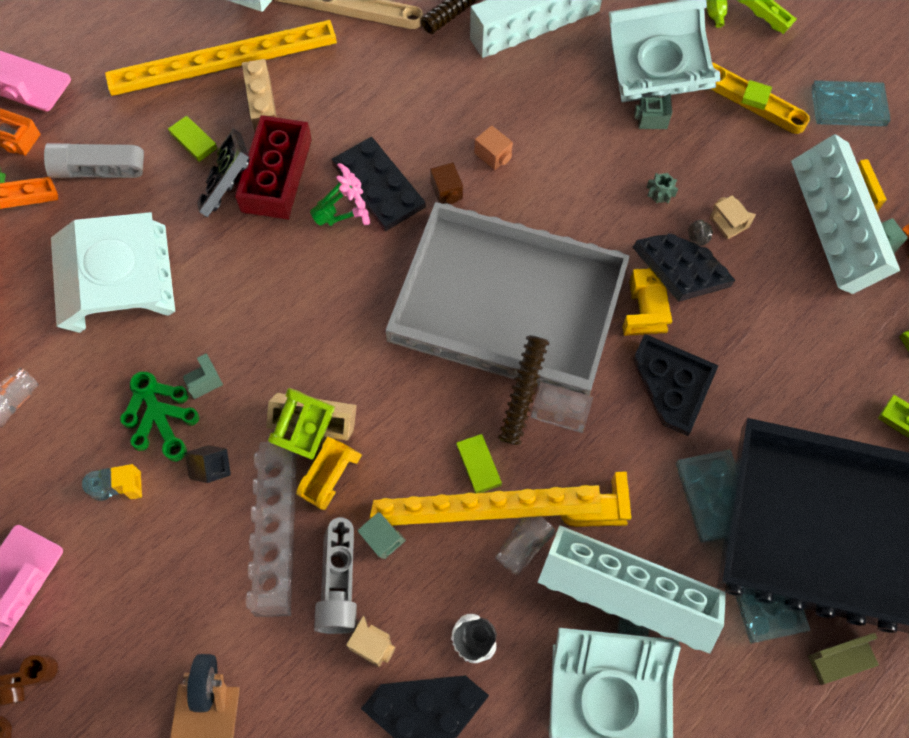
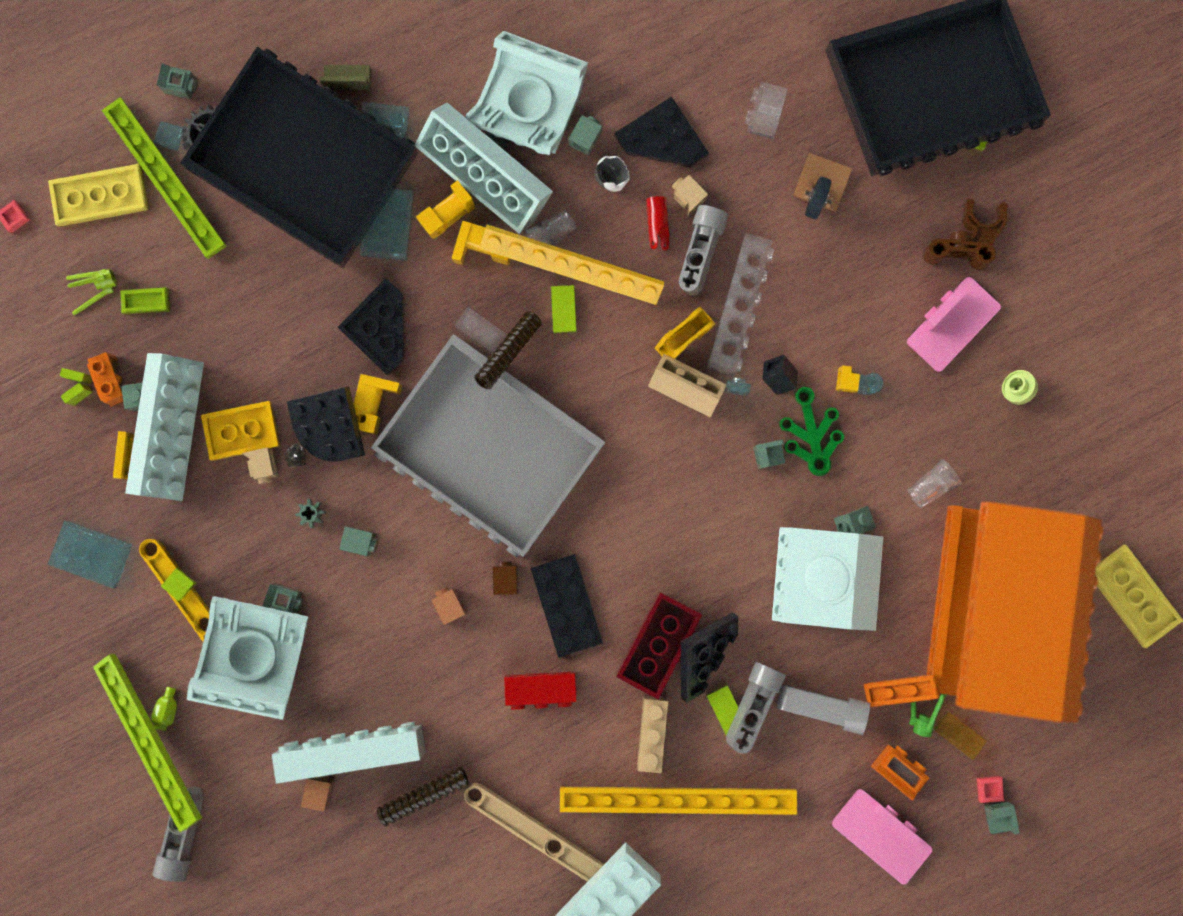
camera: 160 degrees left, 20 degrees up
(90, 336) = (855, 521): none -> sand green bracket
(164, 144) = (762, 682): none -> light grey beam
(253, 434) = (737, 386): none -> clear light blue plate
(310, 425) = (691, 365): lime plate -> none
(348, 186) = (597, 579): plant -> none
(380, 106) = (540, 689): none -> red brick
(381, 536) = (659, 269): sand green panel -> none
(400, 598) = (658, 221): none -> red piece
(523, 679) = (585, 134): none -> sand green brick
(604, 177) = (358, 541): none -> sand green brick
(658, 520) = (447, 212): none -> yellow piece
(767, 241) = (240, 430): none -> yellow plate

